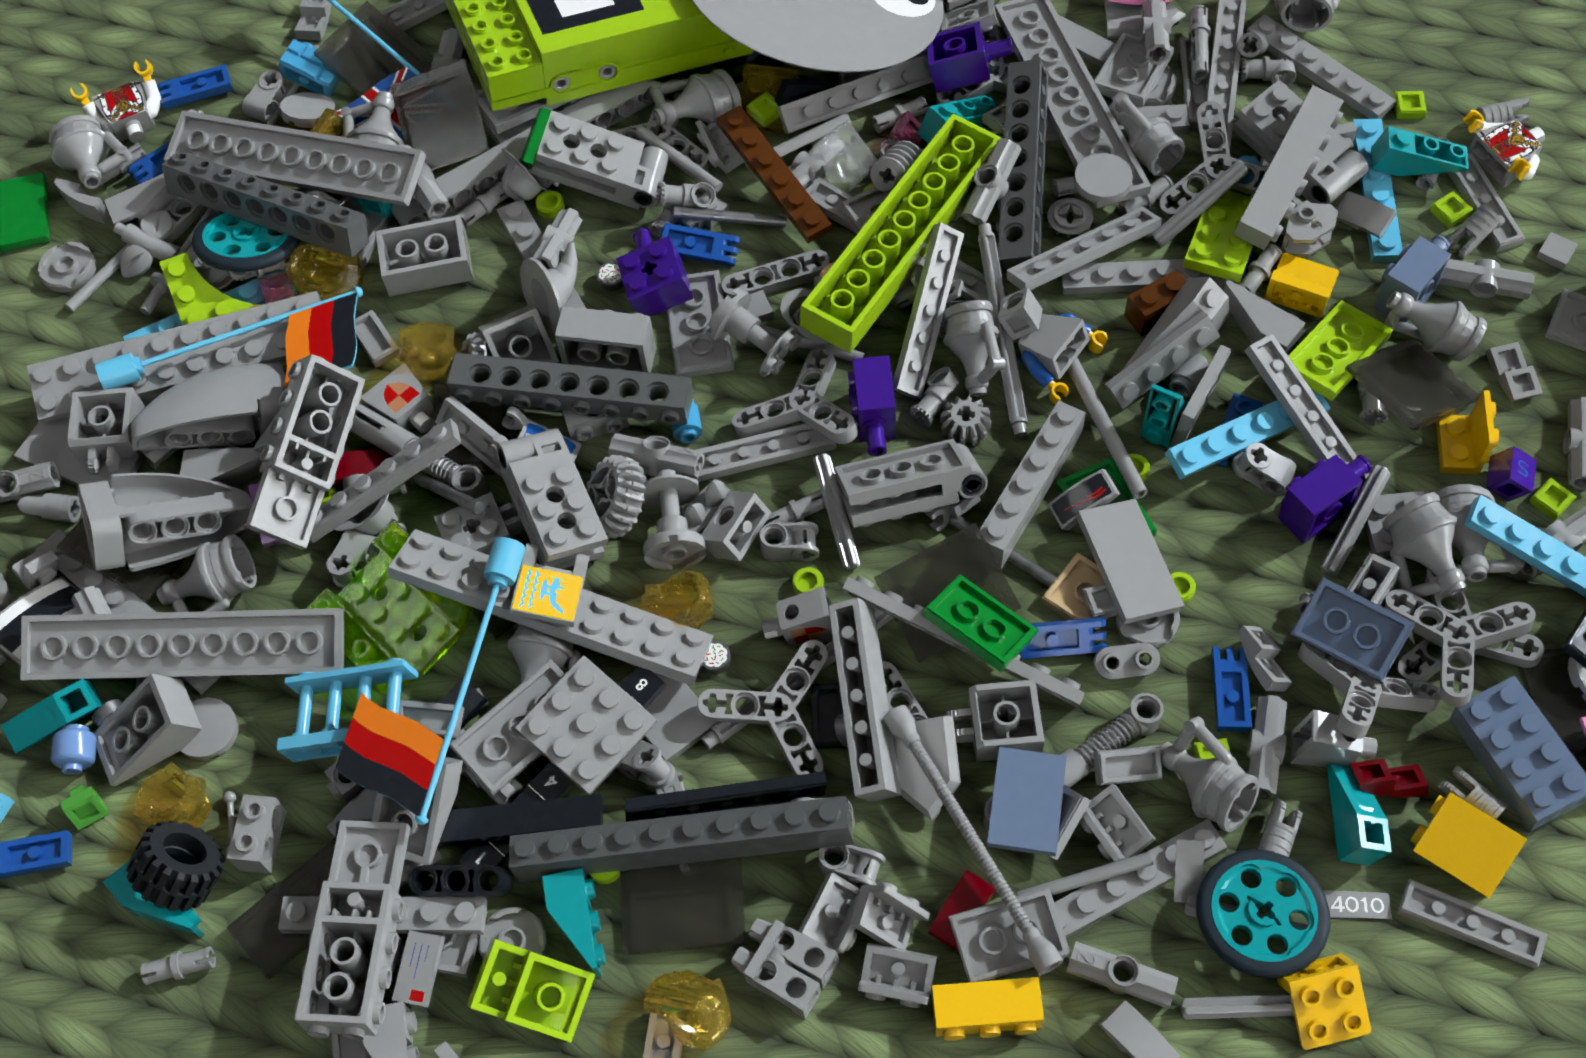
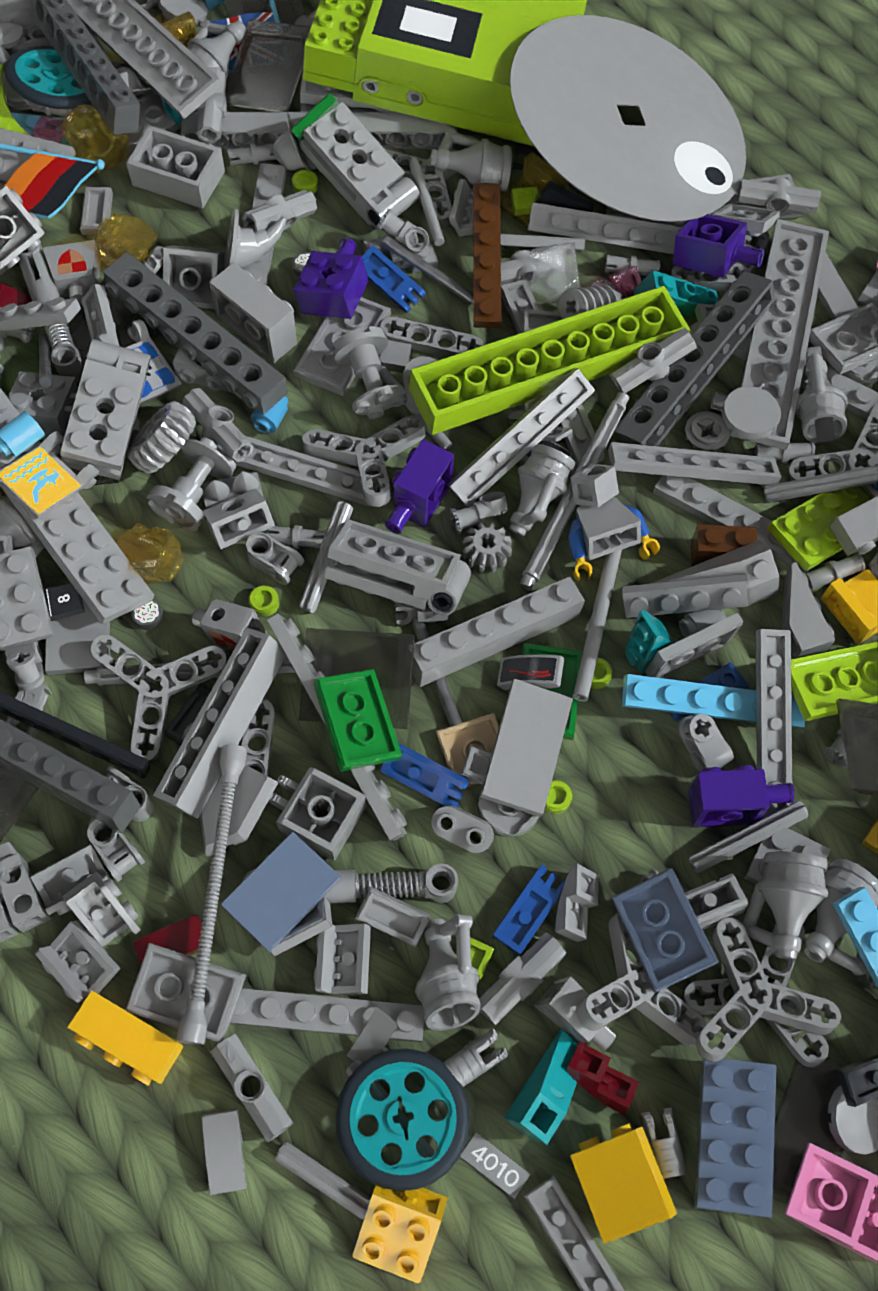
camera: 25 degrees right, 5 degrees up
(1094, 875) = (289, 988): light grey bar -> none

